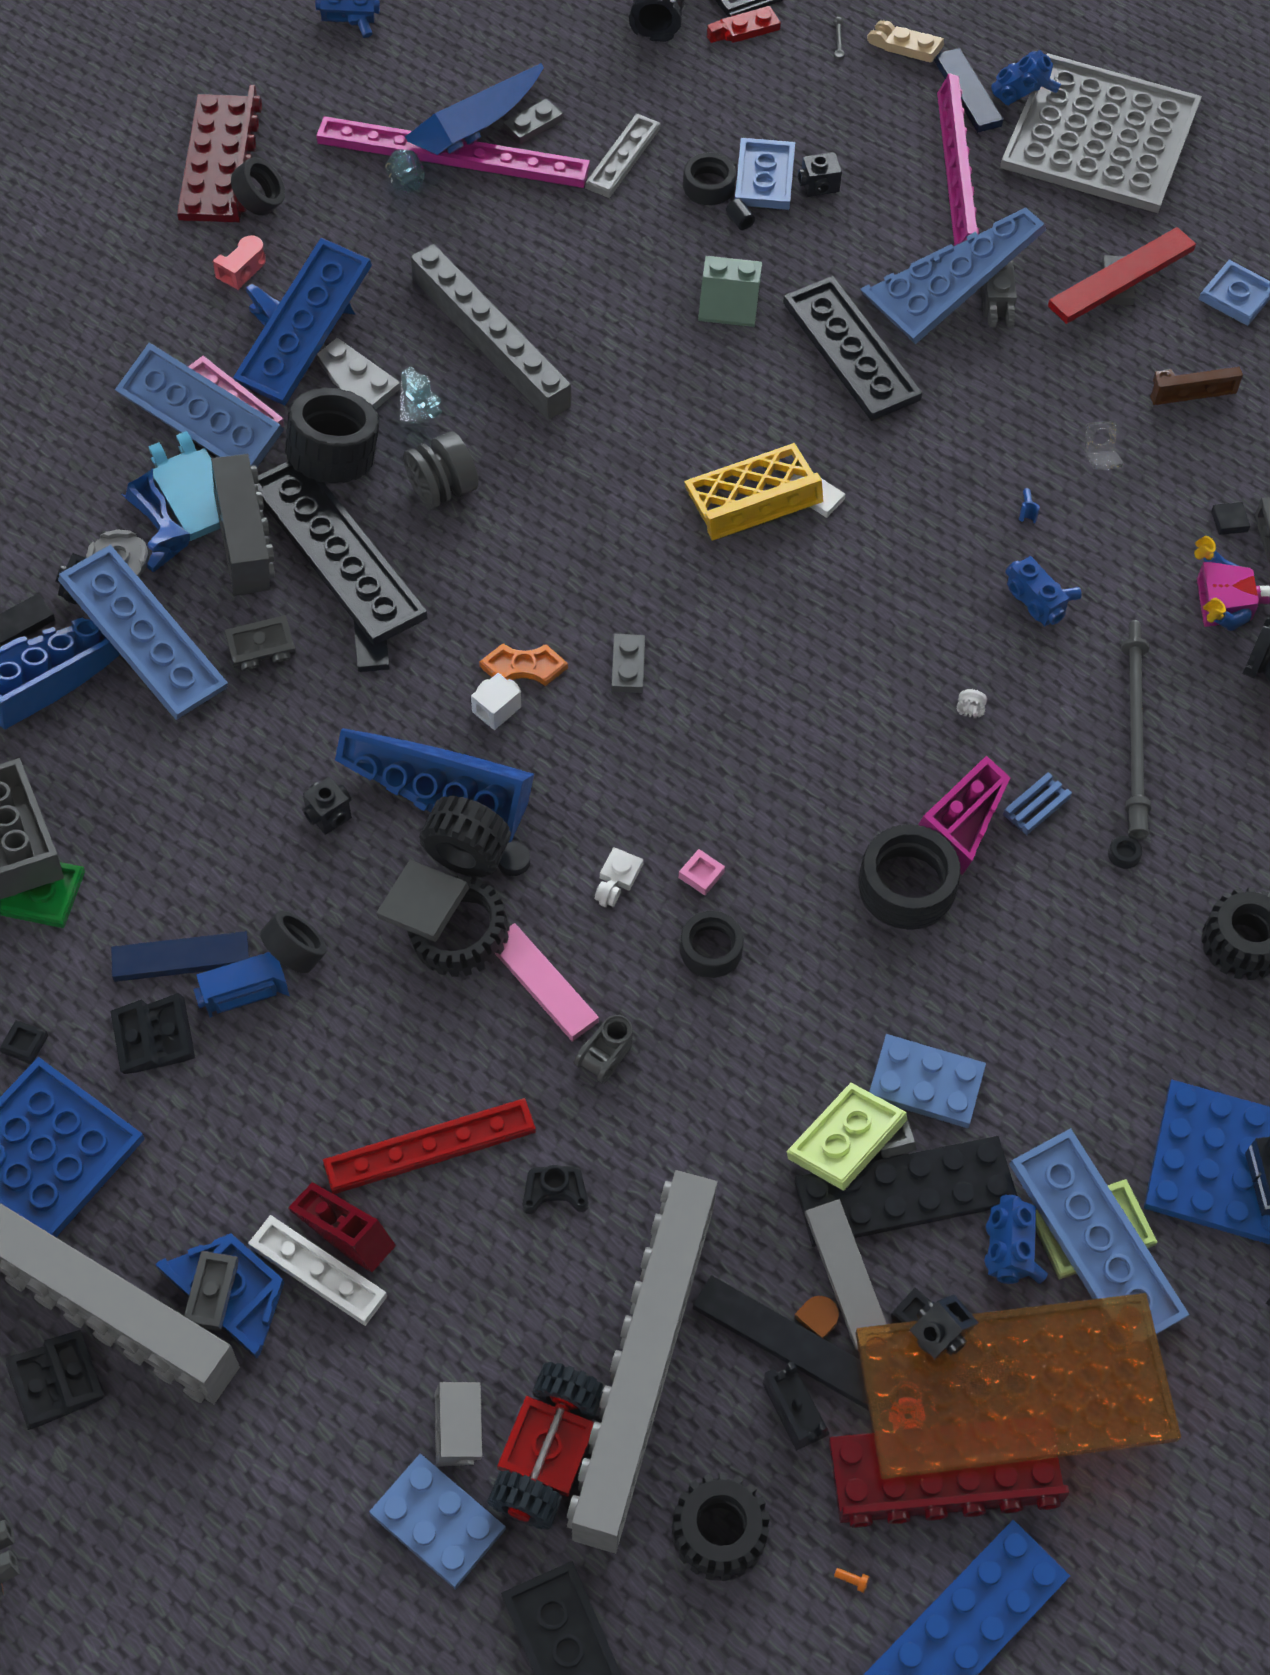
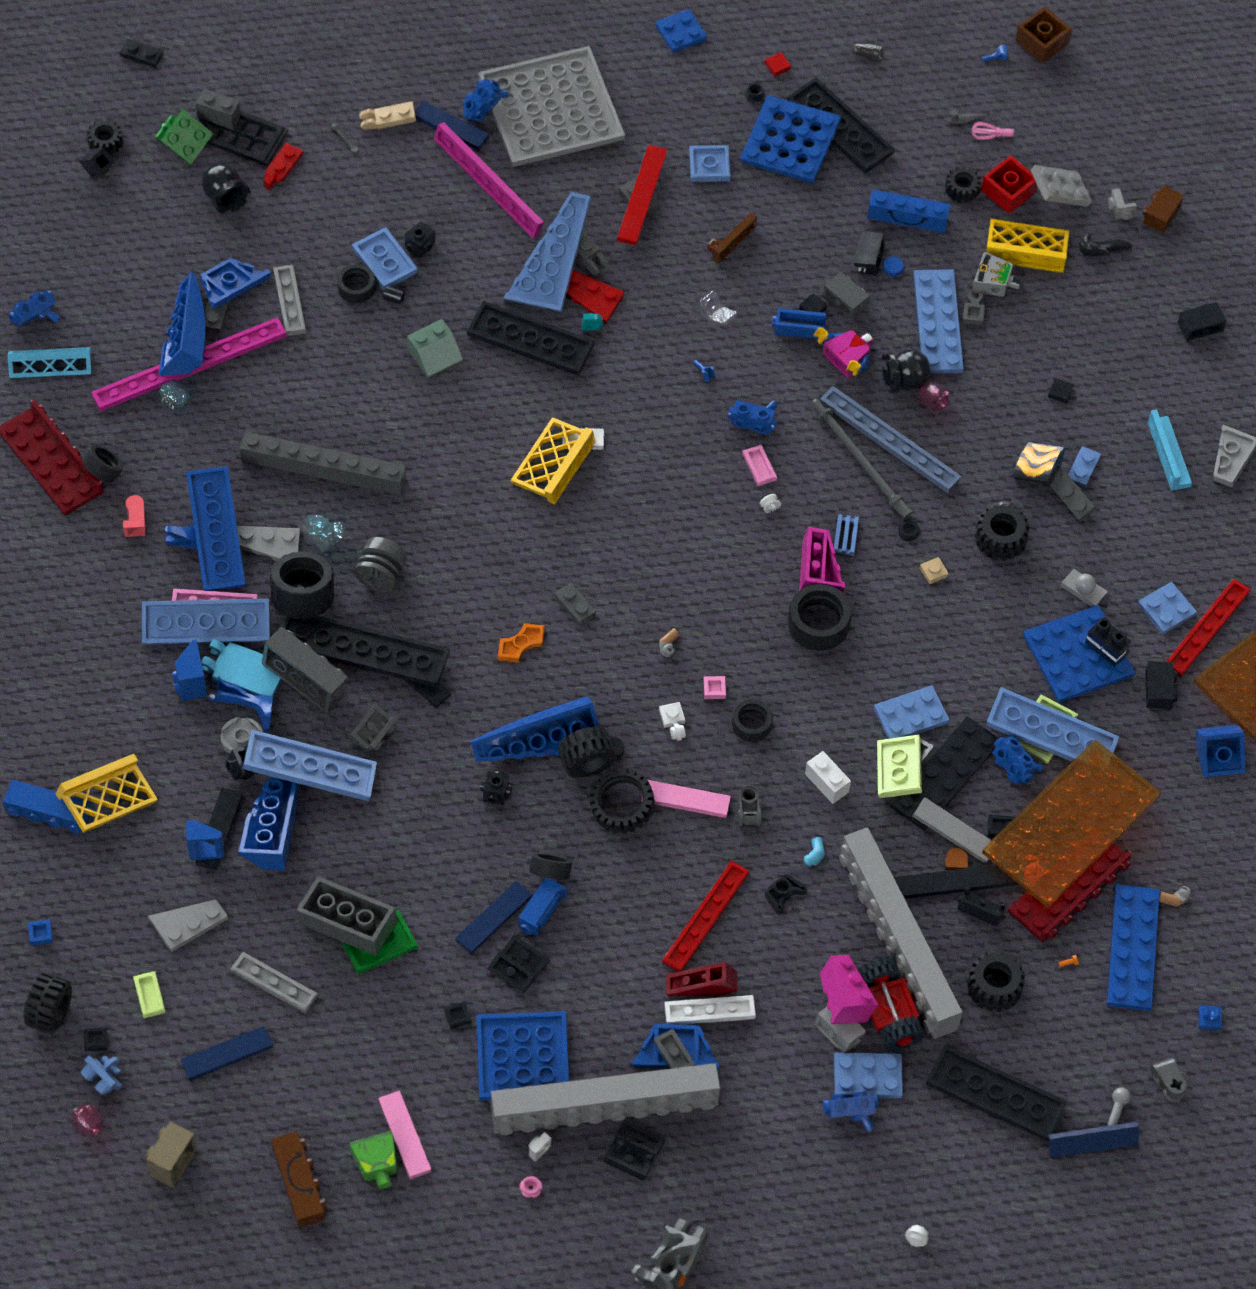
camera: 40 degrees left, 0 degrees up
(122, 448) = (189, 674): none -> blue slope
(322, 60) = (49, 354): none -> medium azure fence
(377, 1553) = (858, 1107): none -> blue brick
(422, 900) = (596, 799): dark grey tile -> none
(496, 700) = (527, 671): white brick -> none
(499, 1384) = (846, 991): none -> dark pink wedge
(576, 97) = (230, 280): none -> blue wing
(640, 1171) = (816, 854): none -> medium azure arm
(693, 780) = (665, 643): none -> arm
(740, 1082) = (827, 777): none -> white brick
(938, 372) = (591, 322): none -> teal tile
(943, 1327) = (1024, 818): black brick -> none
(969, 348) = (594, 295): none -> red wing
(1000, 653) = (759, 465): none -> bright pink tile
(1086, 1608) = (1177, 898): none -> arm
(1116, 922) = (933, 570): none -> tan plate
(1192, 521) = (798, 323): none -> blue window
(1196, 731) = (890, 439): none -> sand blue plate

